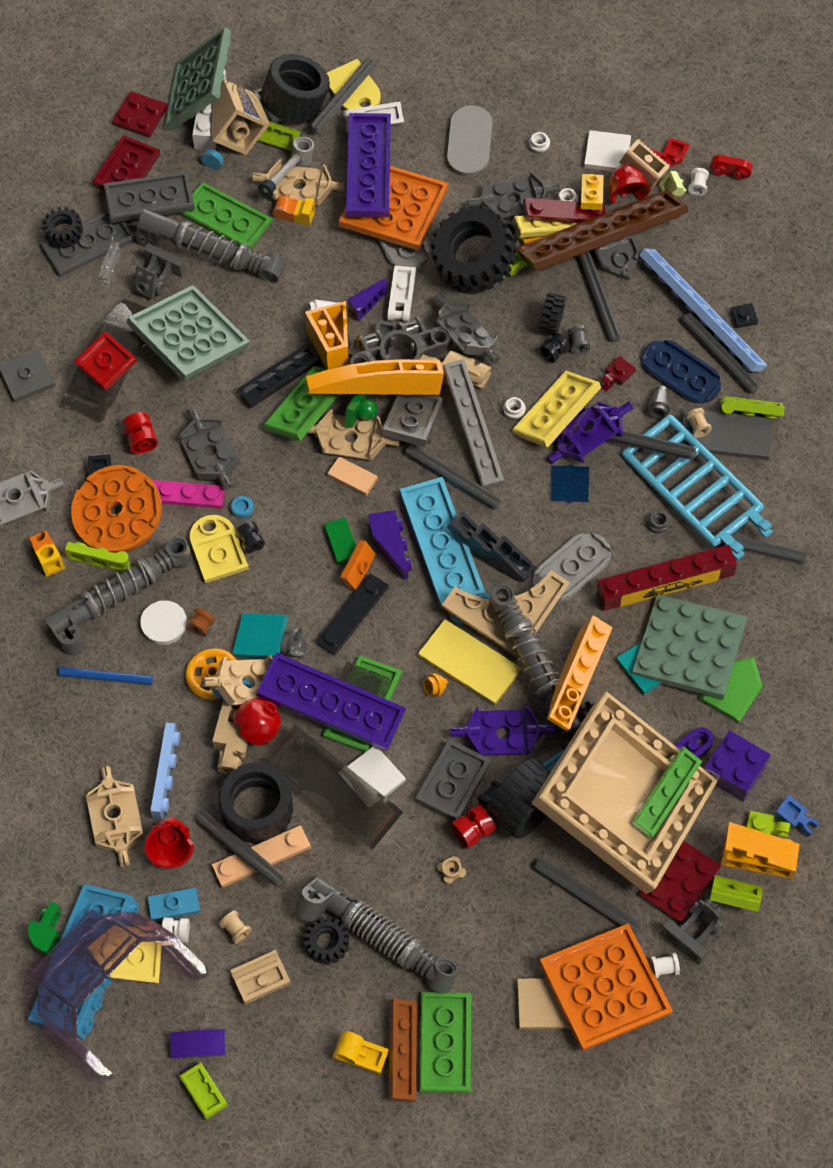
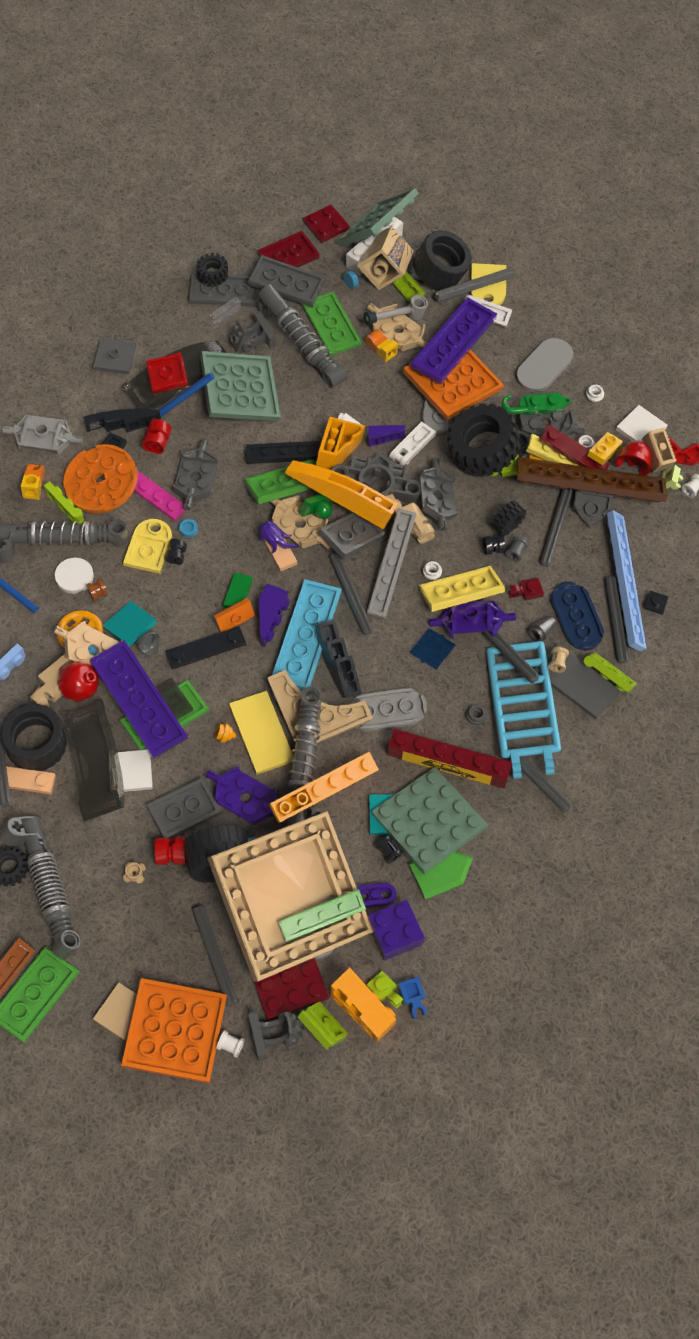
camera: 30 degrees right, 0 degrees up
(94, 432) = (129, 418): none -> black slope
(142, 370) = (187, 393): none -> blue bar
(339, 463) = (274, 535): none -> dark purple piece
(496, 183) = (538, 404): none -> green plate
(674, 696) = (389, 849): none -> black bush

